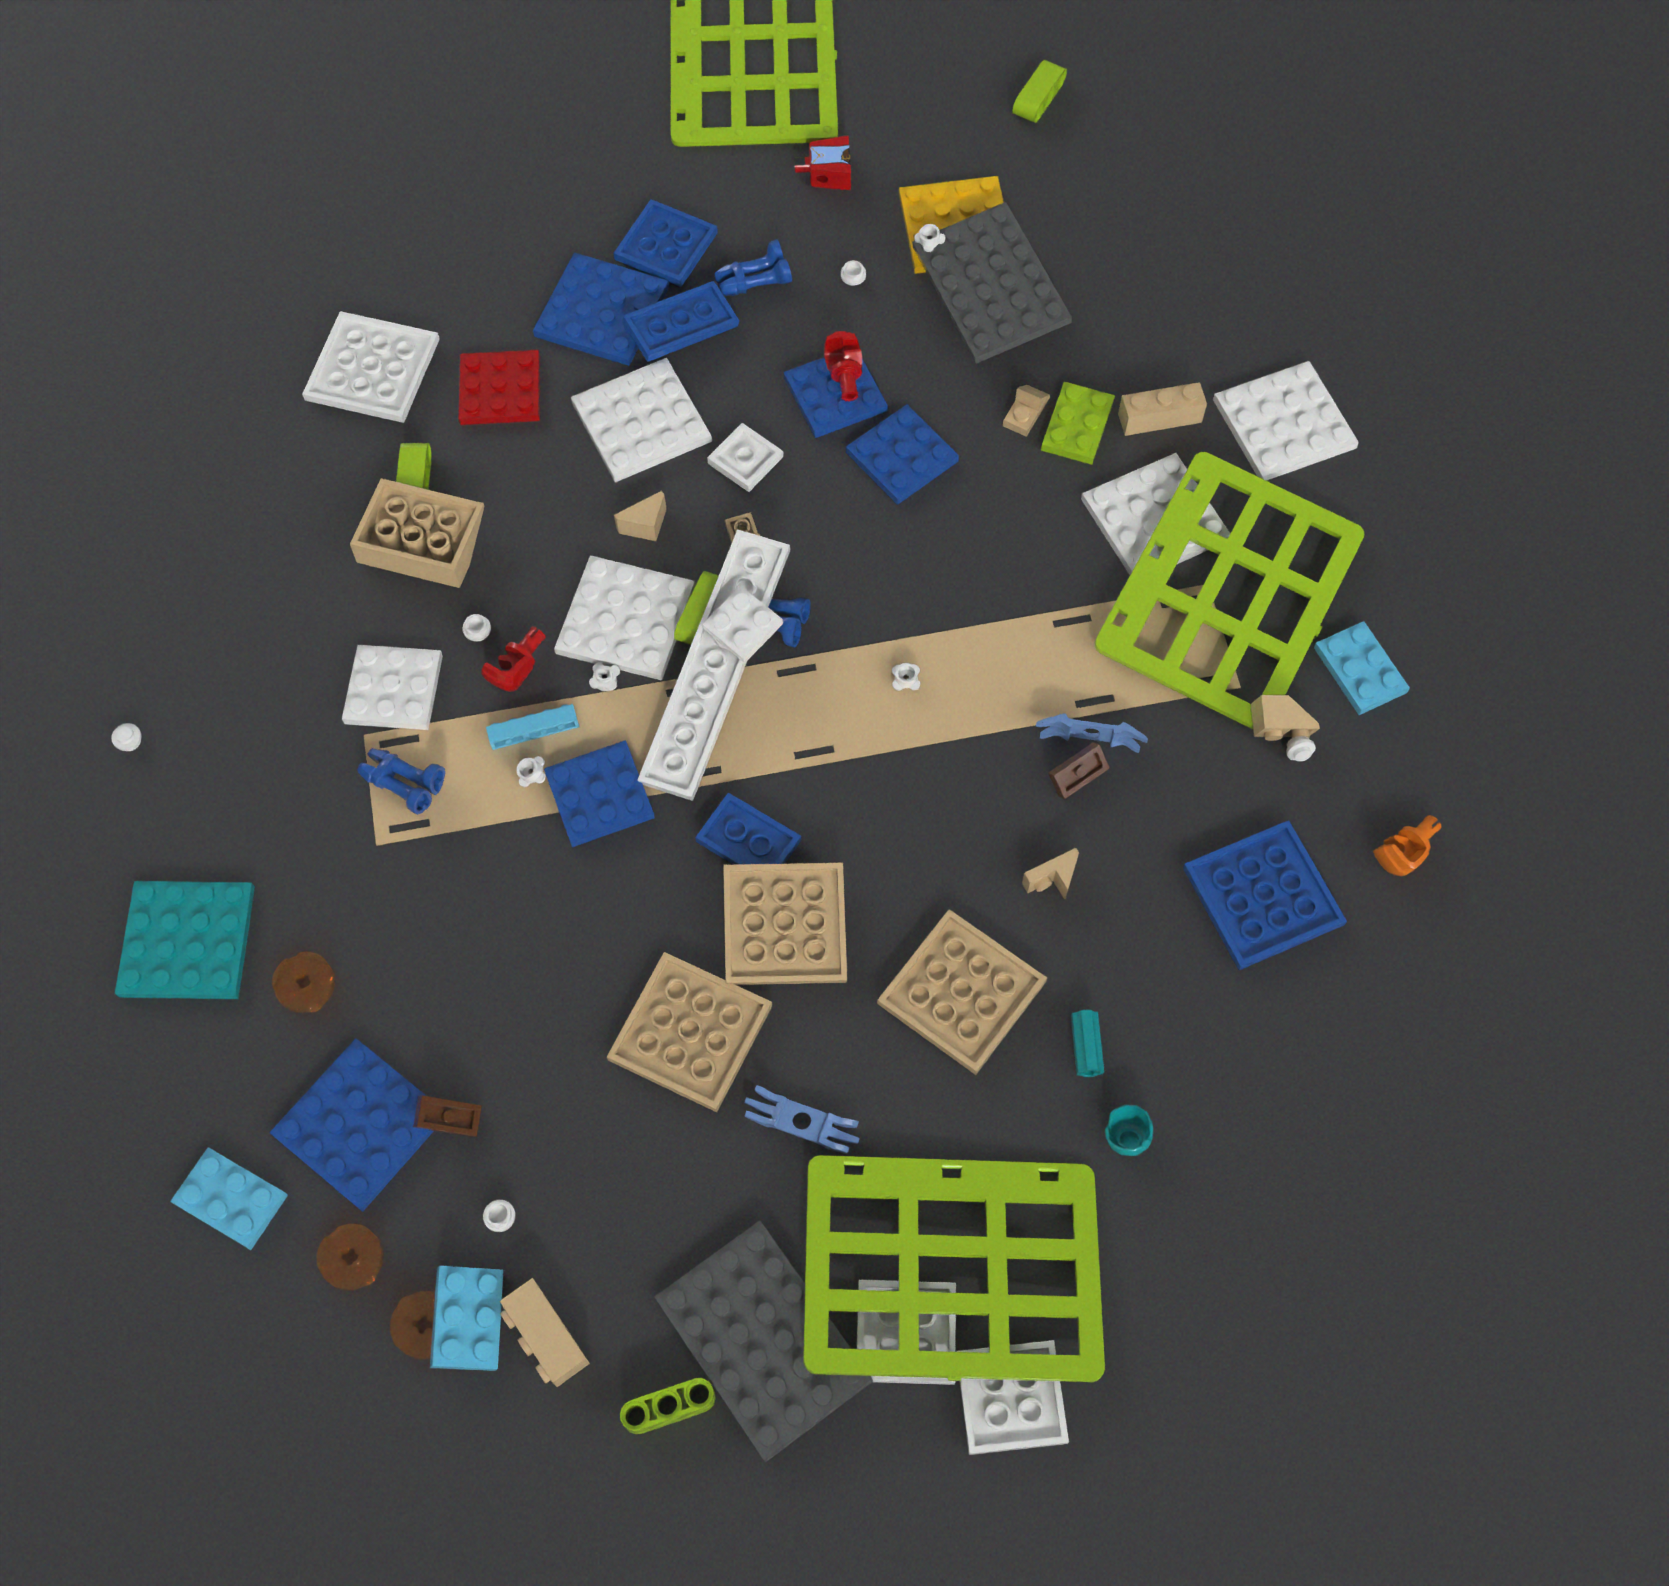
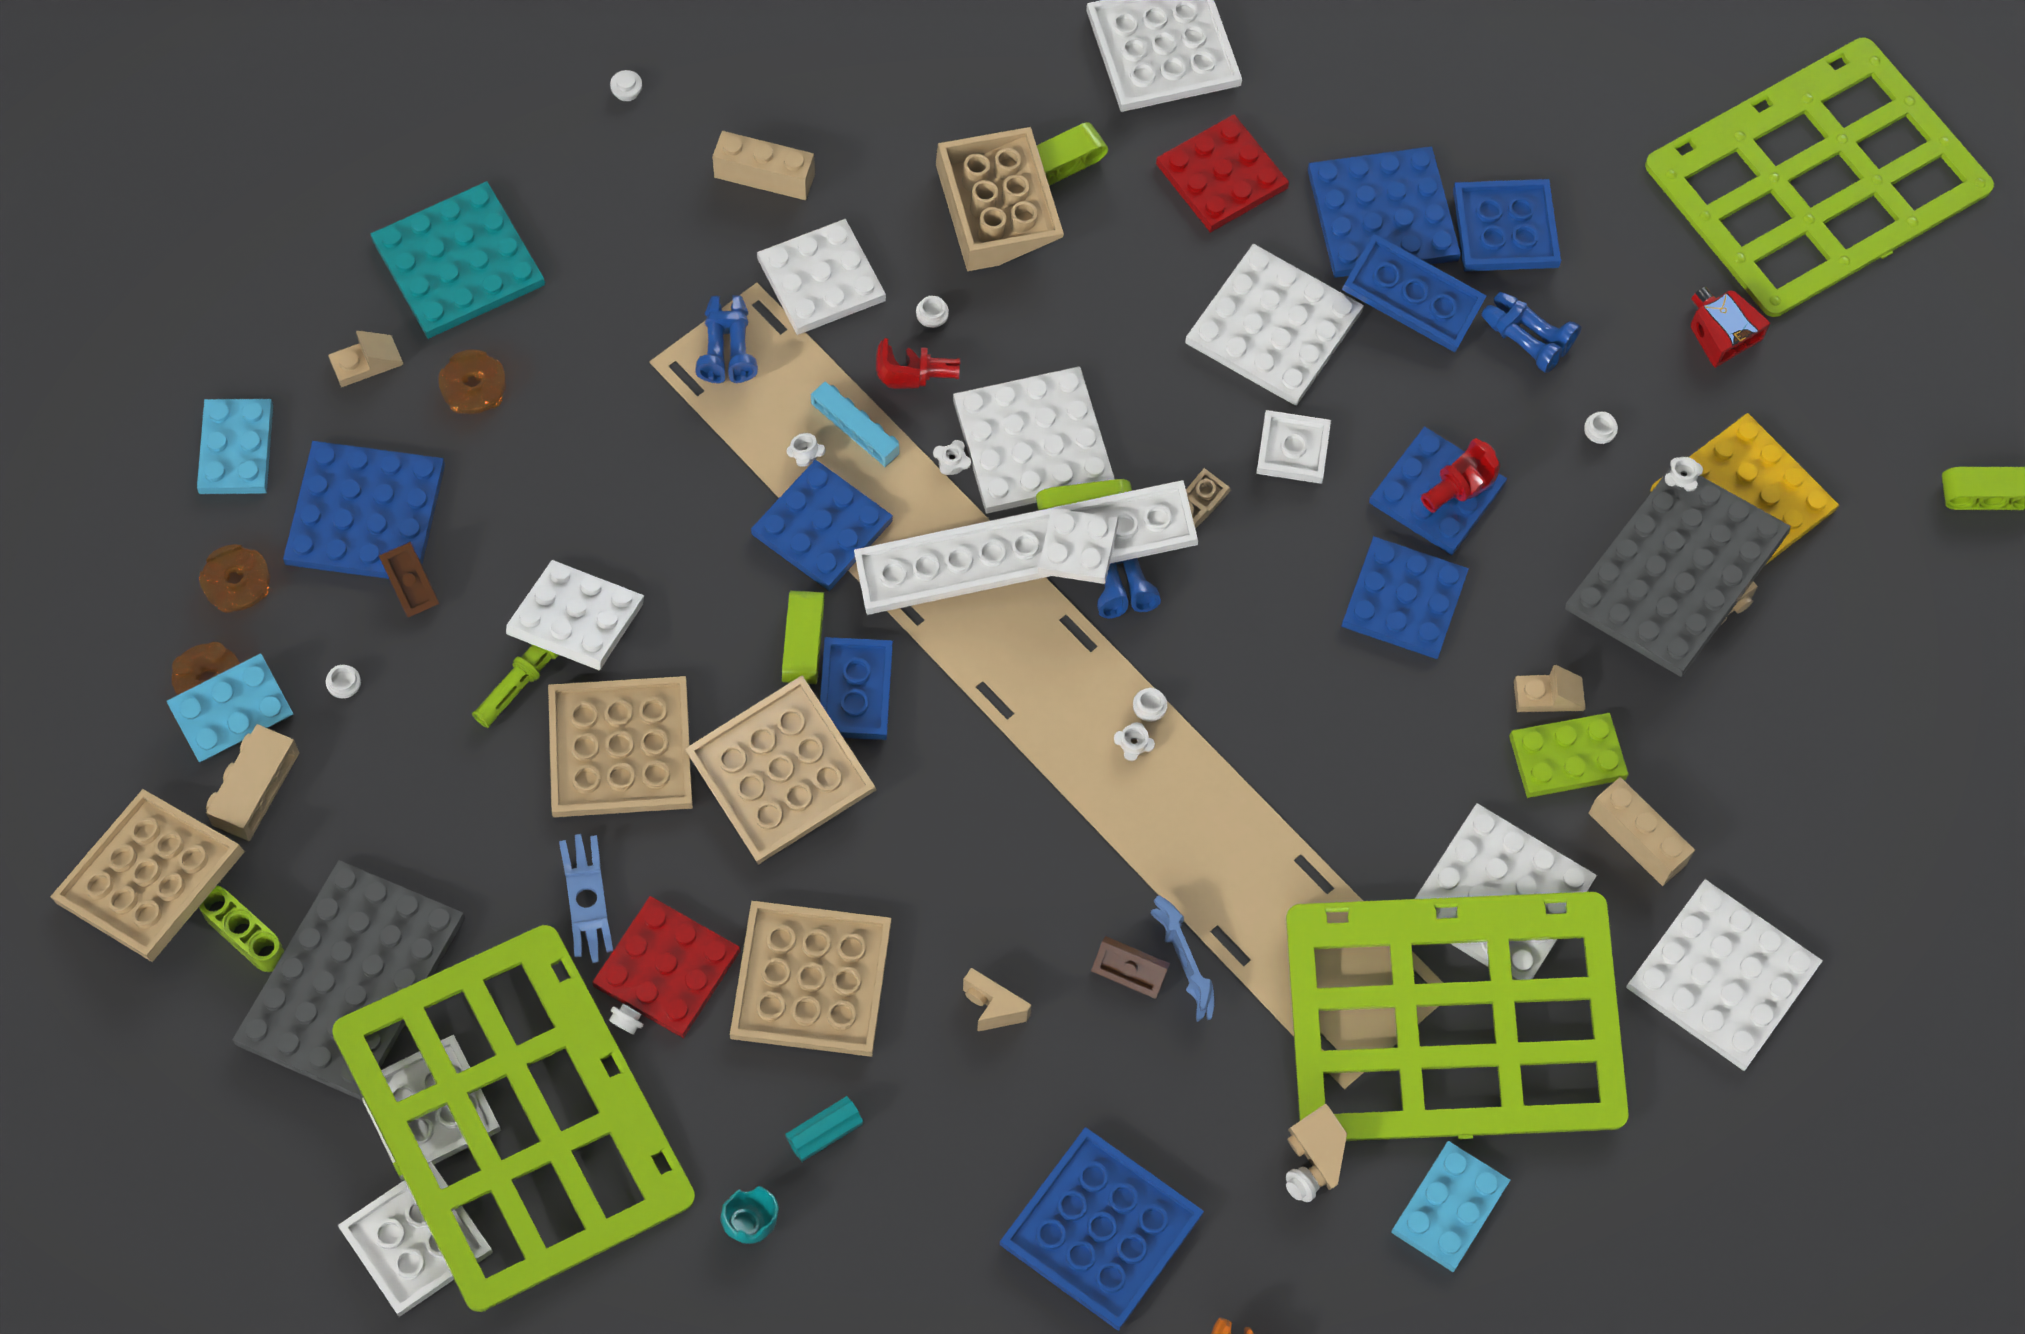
camera: 55 degrees right, 0 degrees up
(223, 1057) = (368, 358): none -> tan slope
(272, 675) = (763, 165): none -> tan brick
(561, 1006) = (575, 615): none -> white plate
(577, 1460) = (147, 874): none -> tan plate
(581, 1069) = (525, 669): none -> lime pin
(643, 518) = (1156, 392): tan slope -> none
(684, 853) = (803, 636): none -> lime beam
(884, 652) = (1150, 704): none -> white plate
(890, 1091) = (666, 966): none -> red plate
(919, 1141) = (626, 1018): none -> white plate

